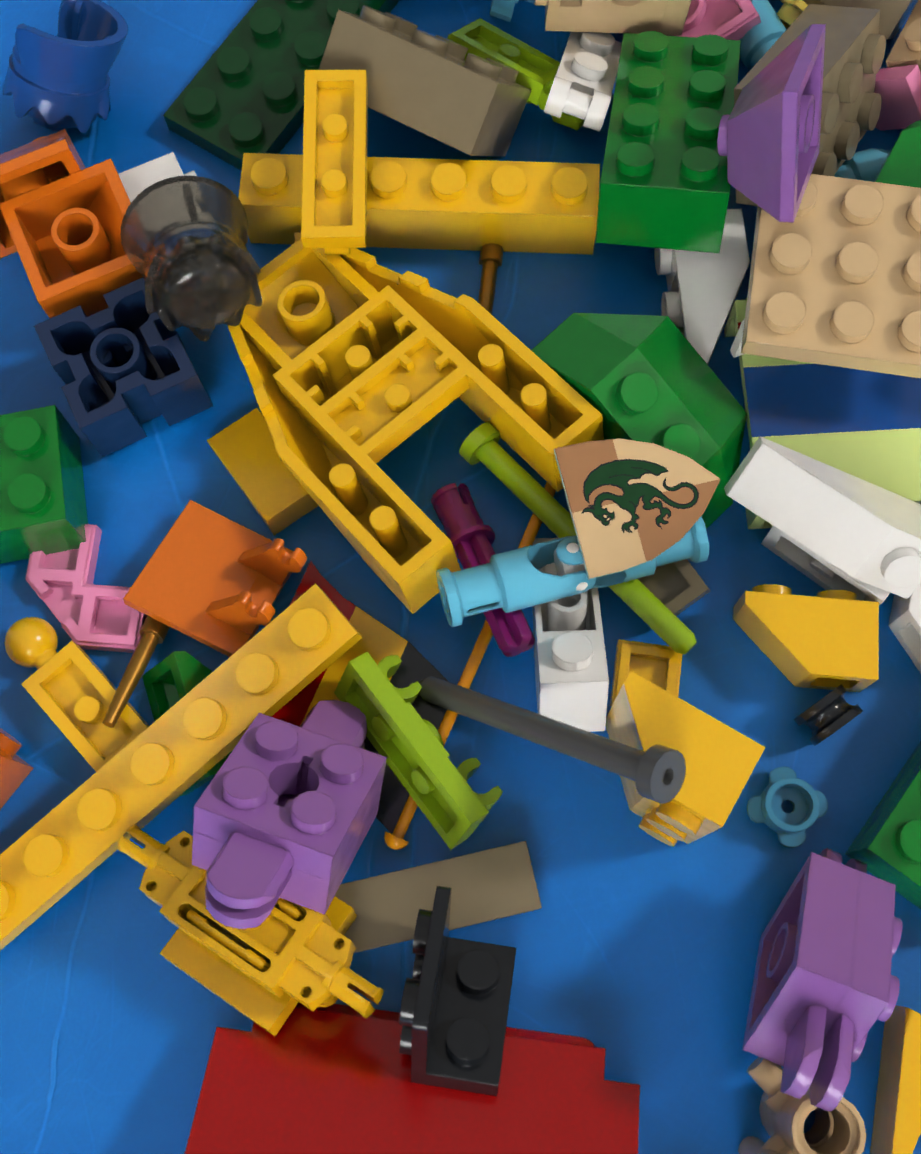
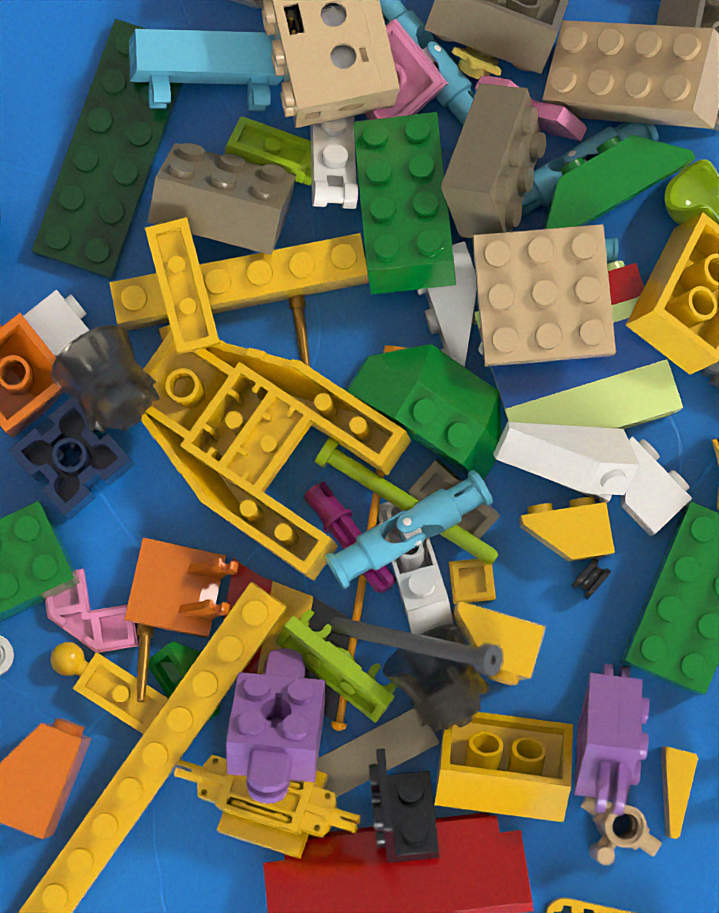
camera: 20 degrees left, 10 degrees up
(255, 466) = (177, 499): yellow slope -> none
(562, 812) = (439, 688): none -> clear smoke hat
(630, 500) = (436, 482): shield -> none
(638, 973) = (506, 766): none -> yellow slope
(776, 128) = (475, 224): medium lavender slope -> none
(806, 802) = (588, 637): dark azure plate -> none

